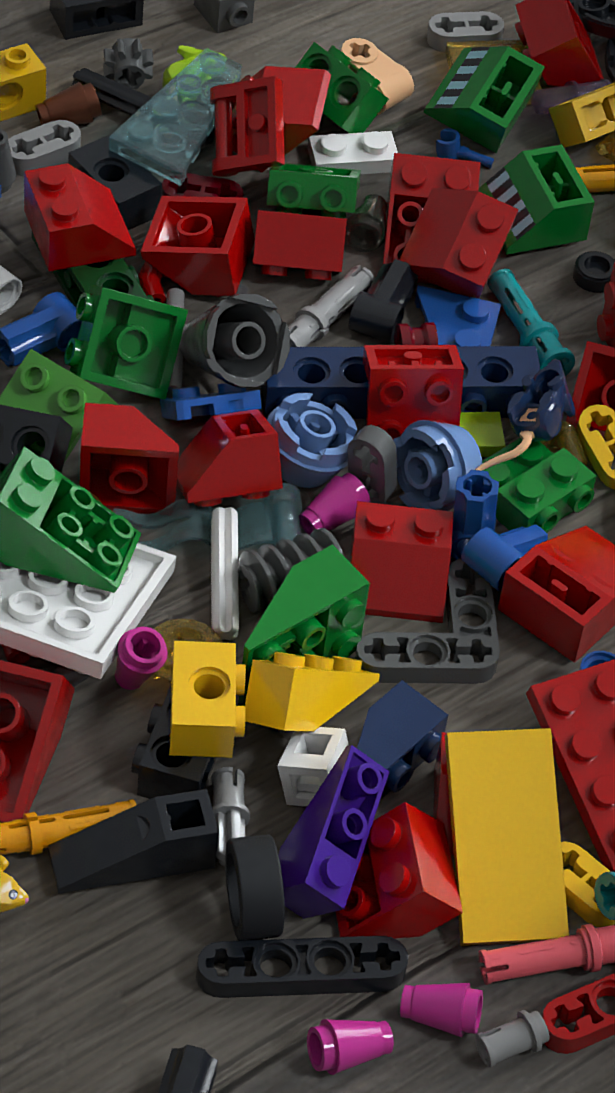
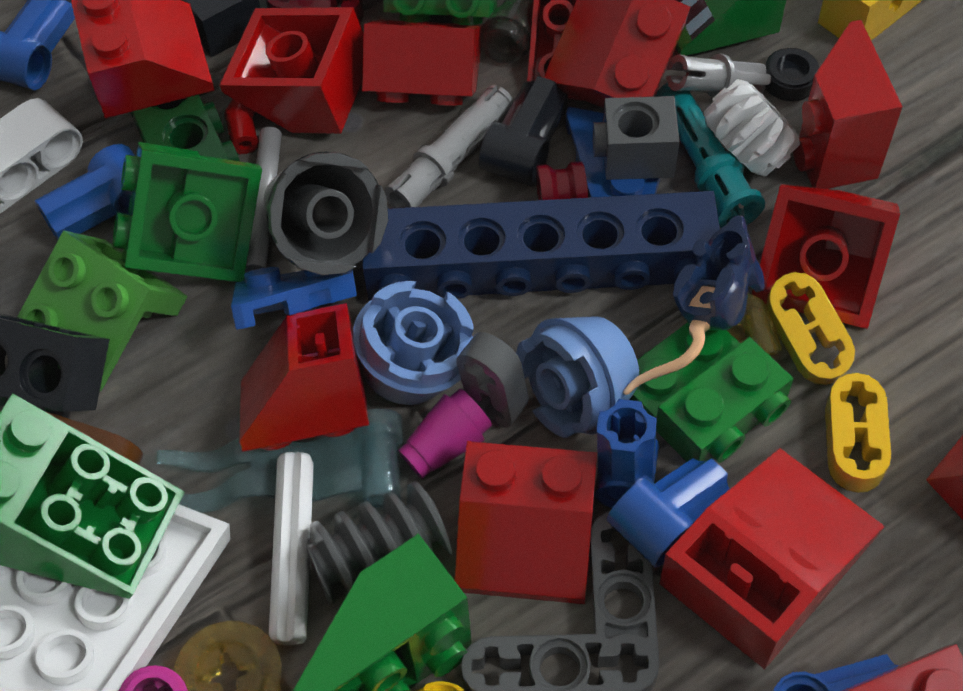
camera: 10 degrees right, 10 degrees up
(127, 459) = (159, 388): red slope -> none
(412, 385) = (548, 265): red bracket -> none
(477, 306) = (638, 137): none -> dark grey brick
(485, 429) = (641, 311): lime tile -> none
(538, 267) = (715, 73): none -> light grey axle
(564, 305) = (751, 128): none -> white gear

